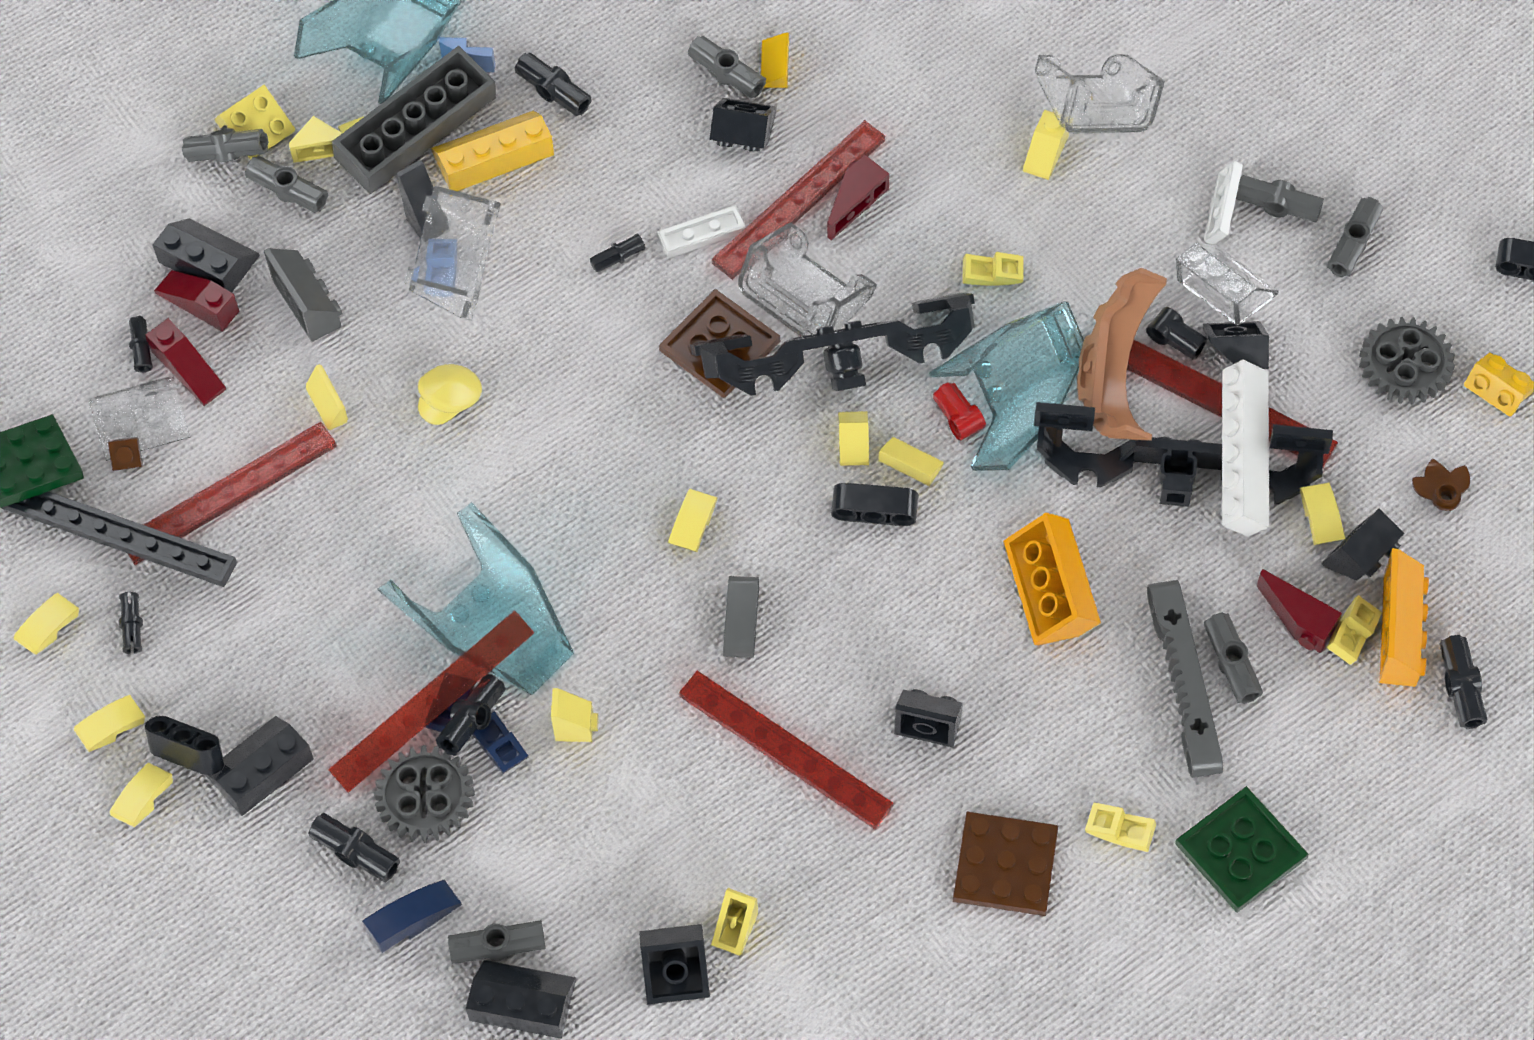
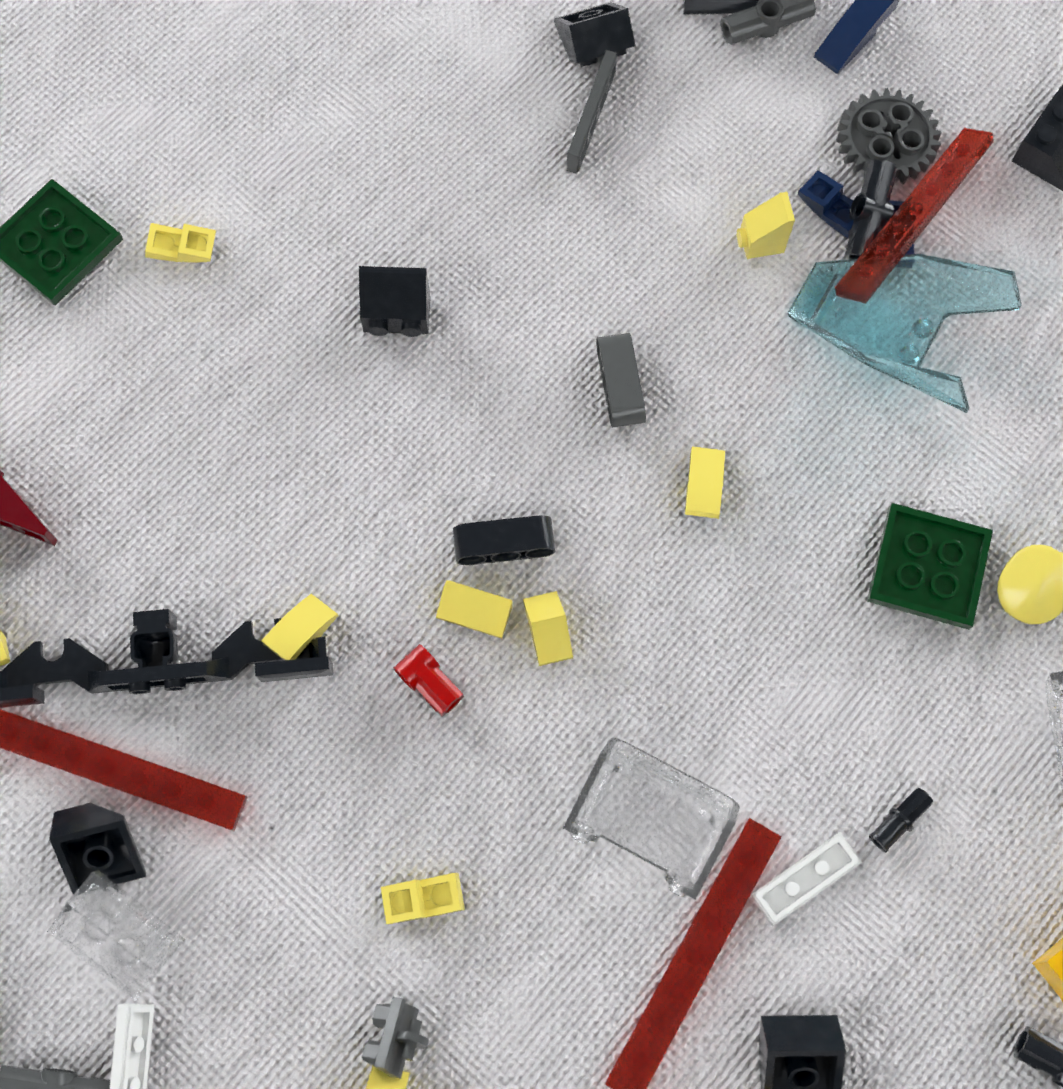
camera: 165 degrees right, 10 degrees up
(354, 847) = (937, 75): black piece -> none
(528, 420) = (930, 566): none -> dark green plate
(700, 874) = (591, 112): none -> dark grey tile
(711, 320) = (738, 715): reddish brown plate -> none
(735, 921) = (545, 82): light yellow slope -> none
(786, 750) = (540, 256): clear red tile -> none
(842, 356) = (586, 722): black piece -> none
(860, 188) = (621, 979): dark red slope -> none
(1005, 863) = (292, 188): reddish brown plate -> none
(1016, 368) = (359, 715): clear light blue windscreen -> none
(1035, 173) = (398, 1038): none -> dark grey hips
(1051, 580) = (286, 488): light orange slope -> none
(1056, 469) = (298, 628): none -> light yellow slope
(1107, 352) = (259, 759): nougat windscreen -> none
(1168, 607) = (151, 482): dark grey gear -> none
(1170, 329) = (181, 849): black piece -> none
(1238, 673) = (83, 451): dark grey piece -> none
(1245, 448) = (72, 685): white brick -> none

